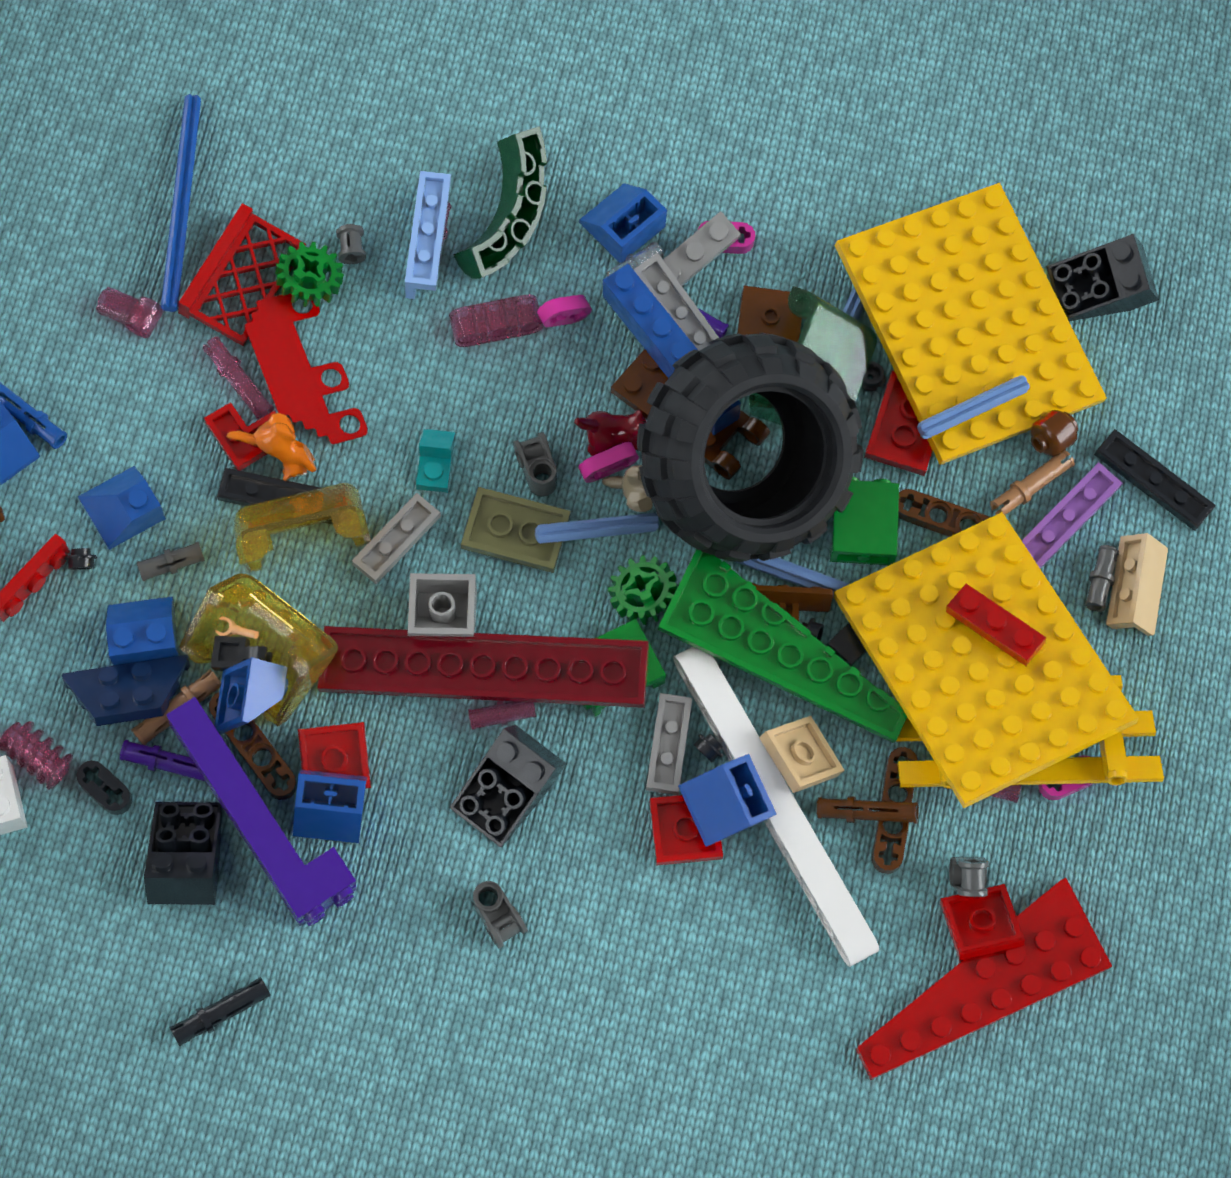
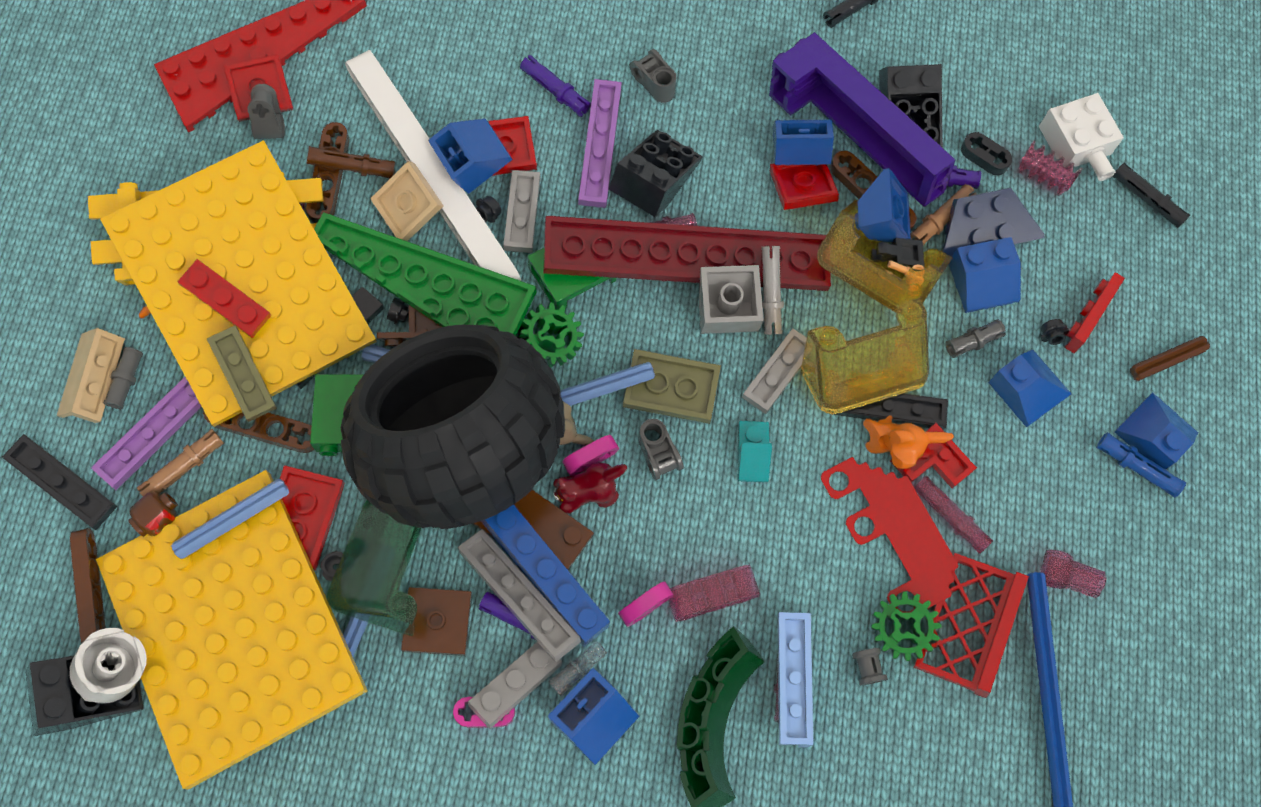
camera: 175 degrees right, 0 degrees up
(394, 607) = (772, 290): none -> light grey pin
(571, 827) = (600, 143): none -> medium lavender plate
(621, 908) = (562, 91): none -> dark purple pin
(972, 547) = (241, 373): none -> olive plate
(1079, 297) = (118, 649): none -> white brick
(1110, 370) = (87, 582): none -> reddish brown beam

